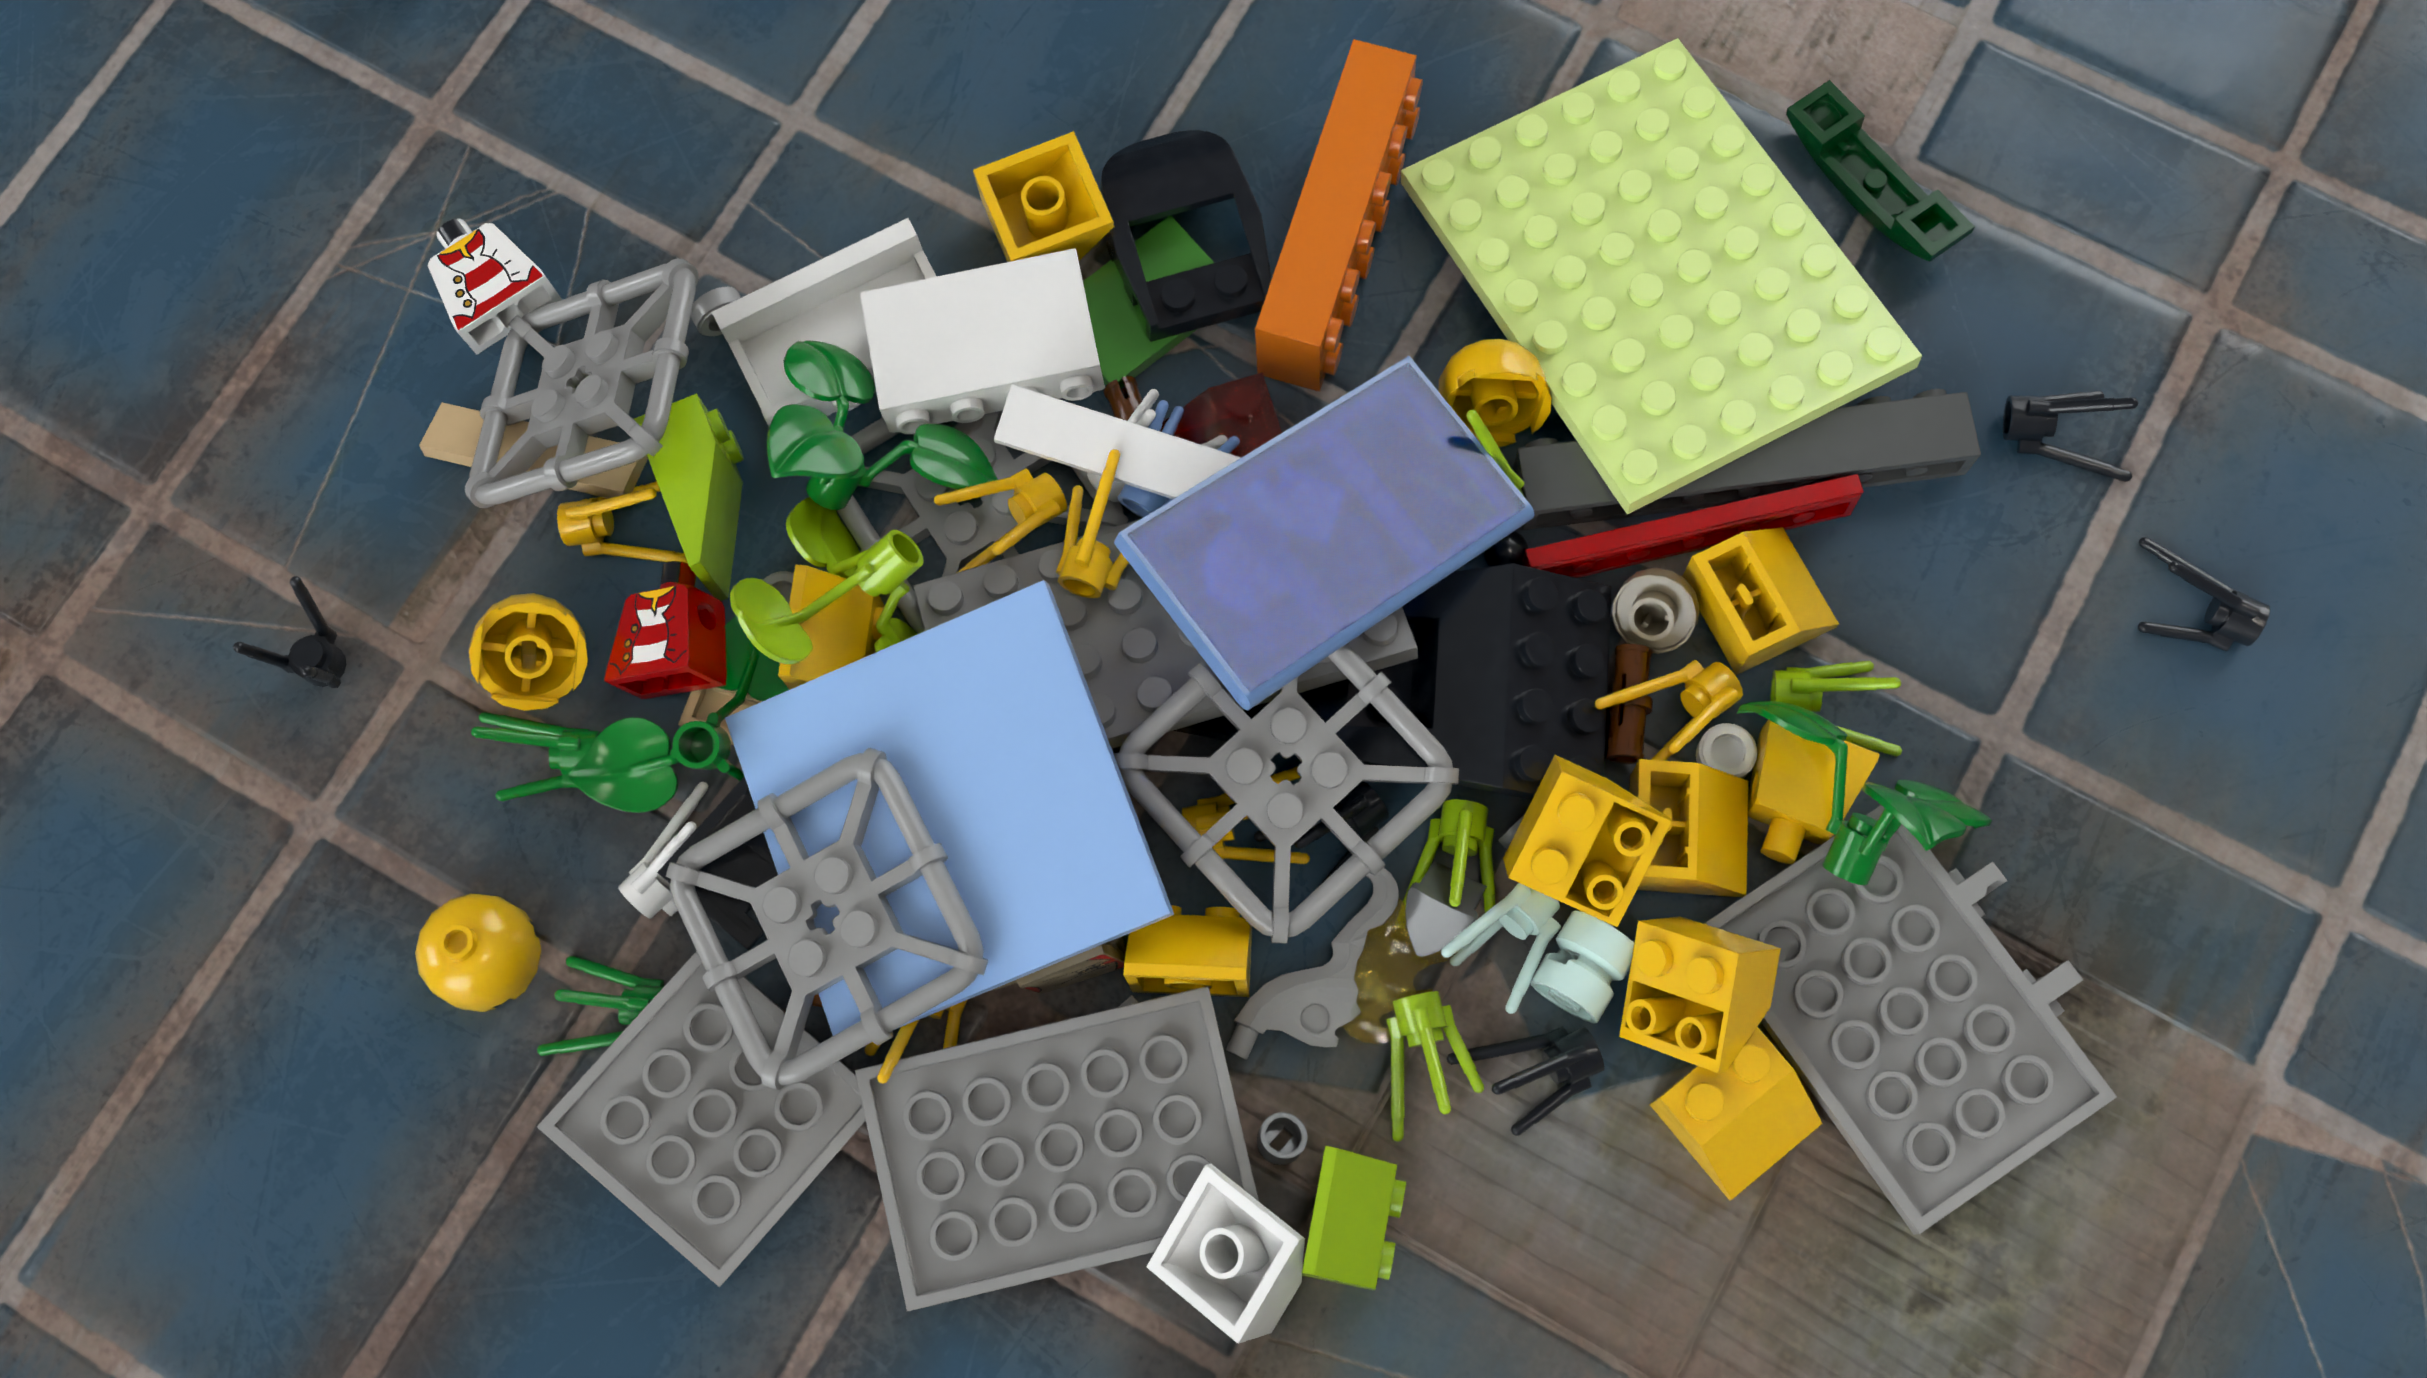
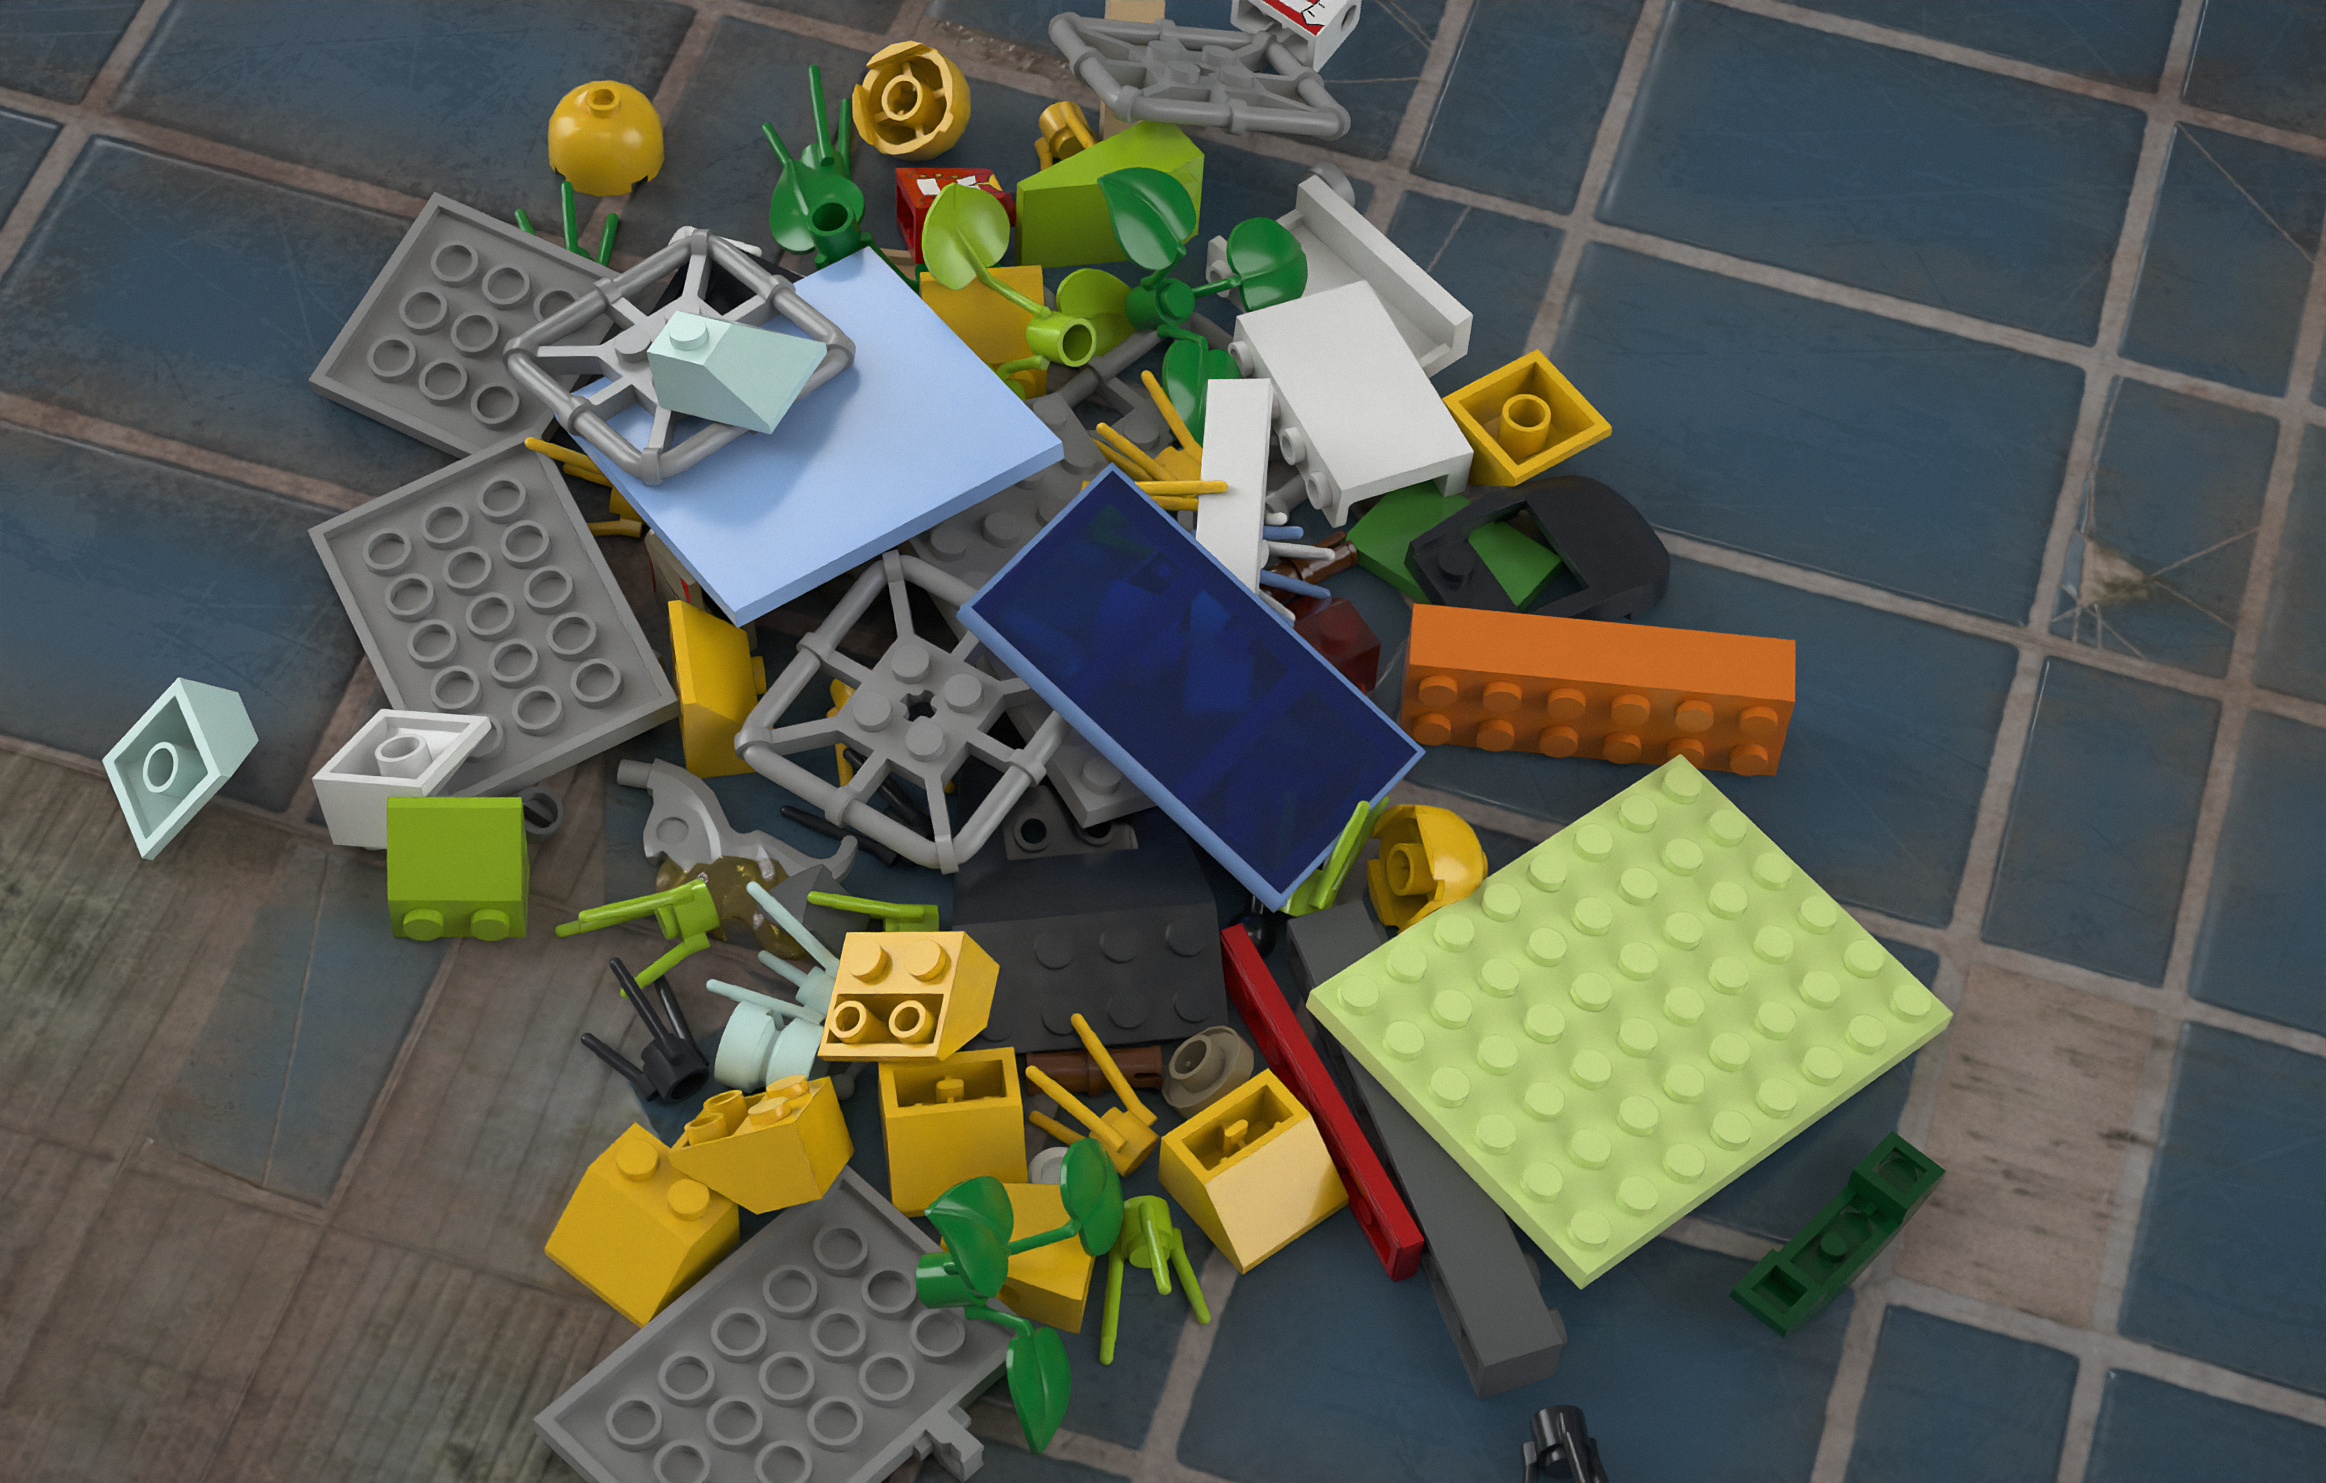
camera: 65 degrees right, 20 degrees down
(889, 860) = (730, 370): none -> light aqua slope

